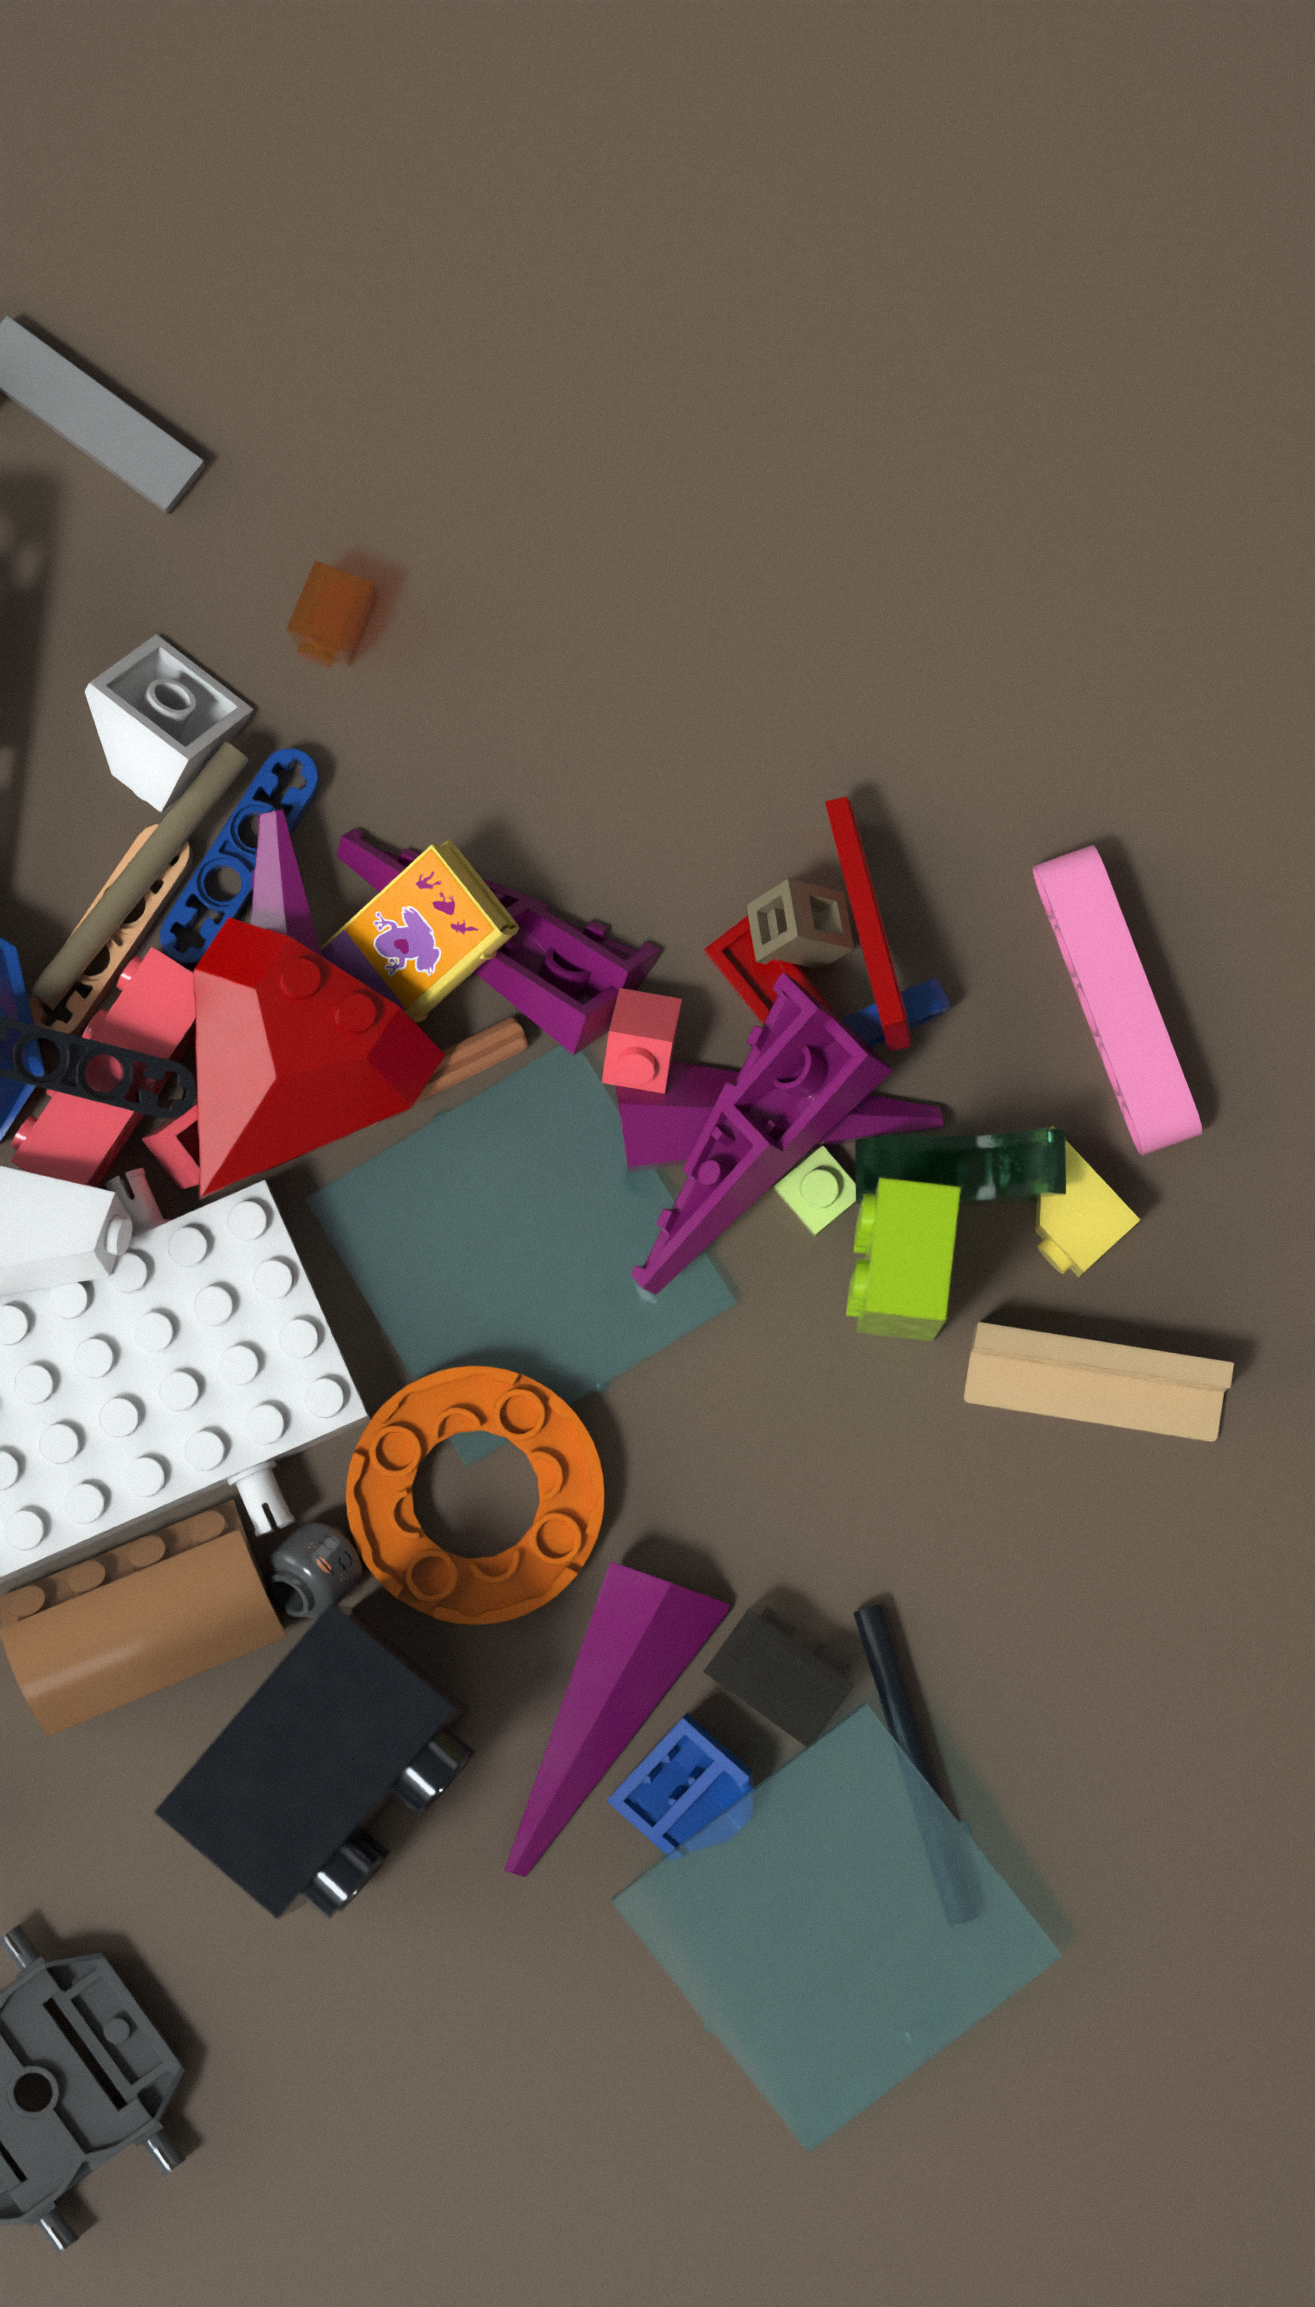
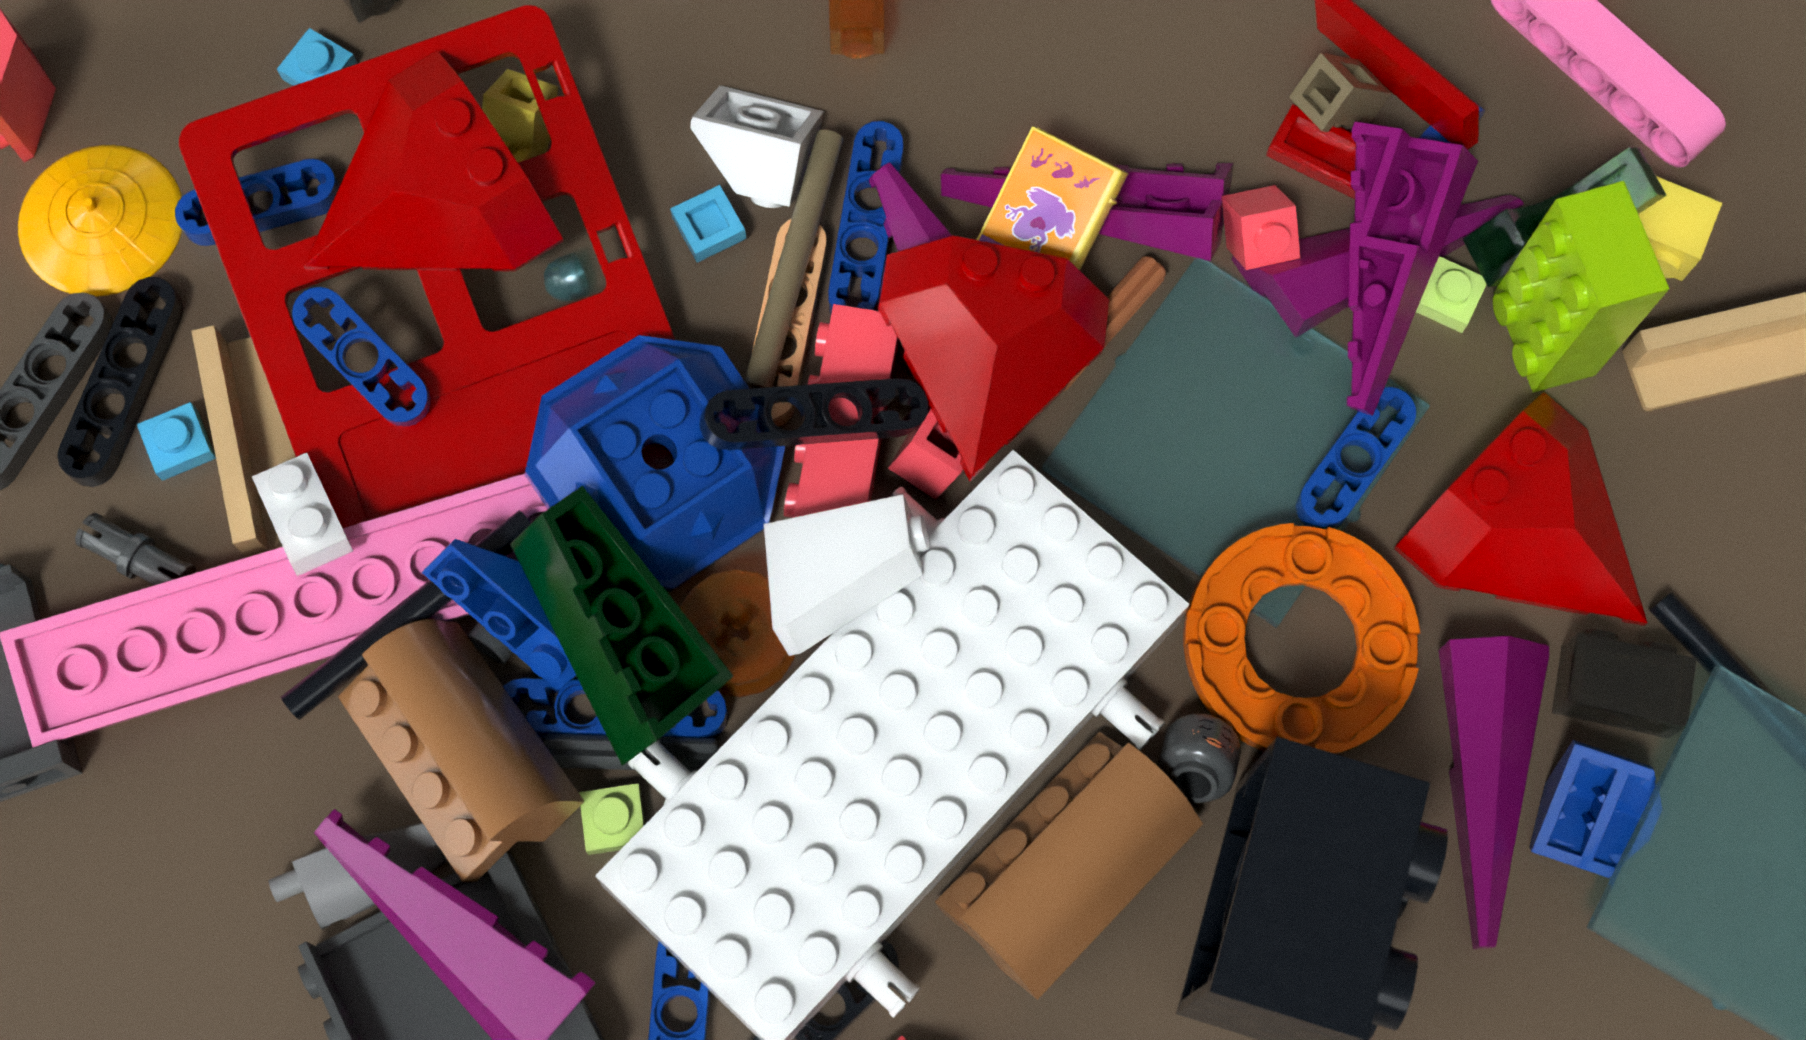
camera: 30 degrees left, 10 degrees down
(73, 792) = (708, 223): none -> medium azure plate
(628, 1303) = (1346, 498): none -> blue beam
(779, 1468) = (1530, 523): none -> red wedge

